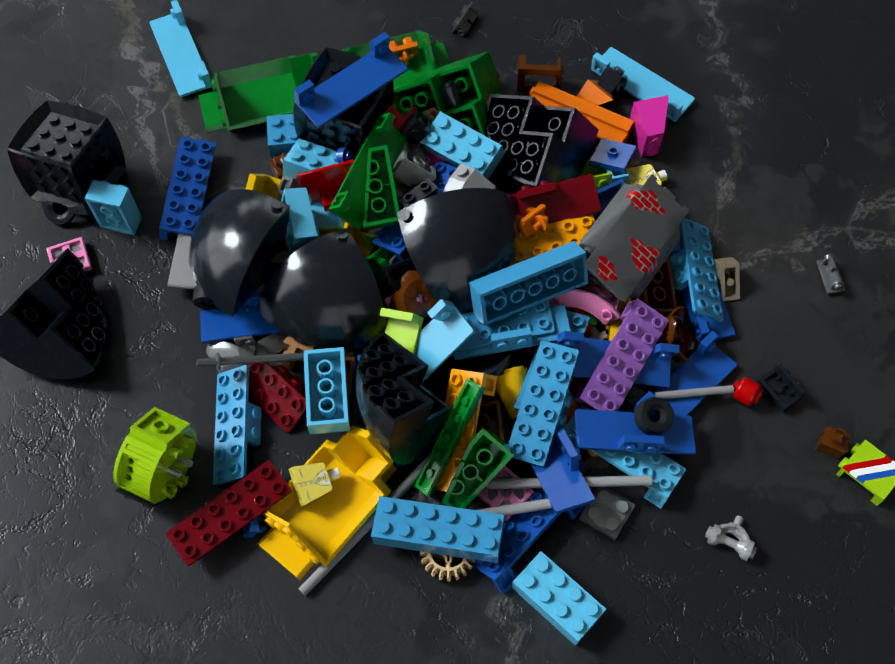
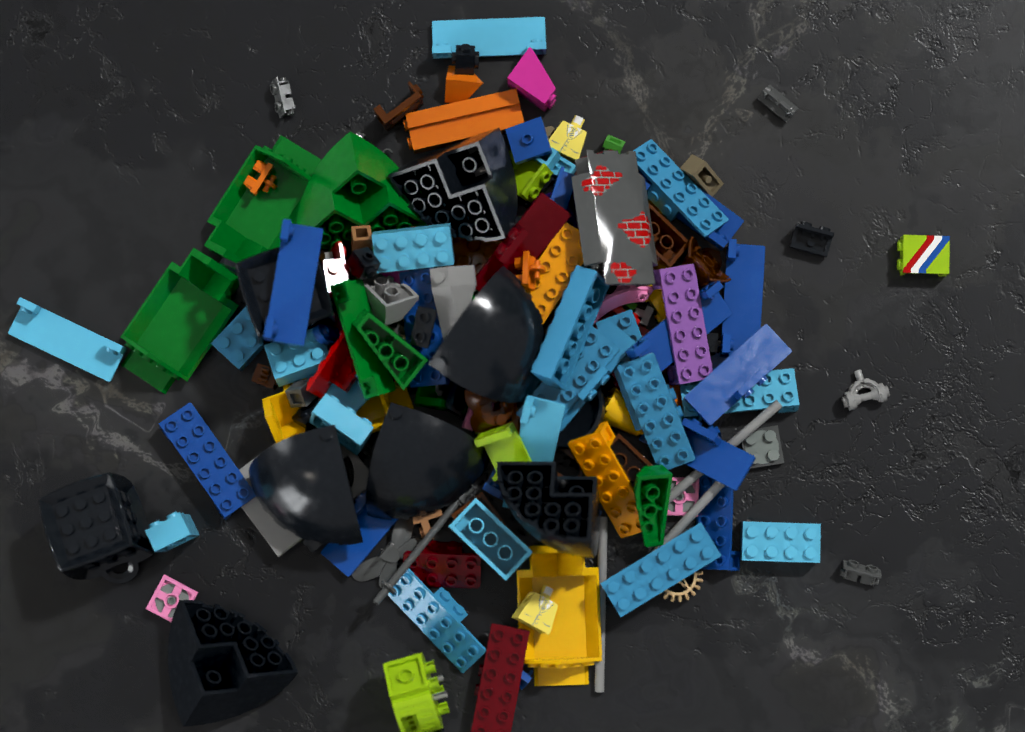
camera: 35 degrees left, 20 degrees up
(449, 437) = (610, 495): green tile -> none
(450, 94) = (357, 203): black brick -> none
(664, 412) = (751, 345): black tyre -> none
(695, 392) = (753, 299): light grey bar -> none
(747, 391) = (790, 264): red head -> none
(833, 442) = (881, 254): reddish brown brick -> none

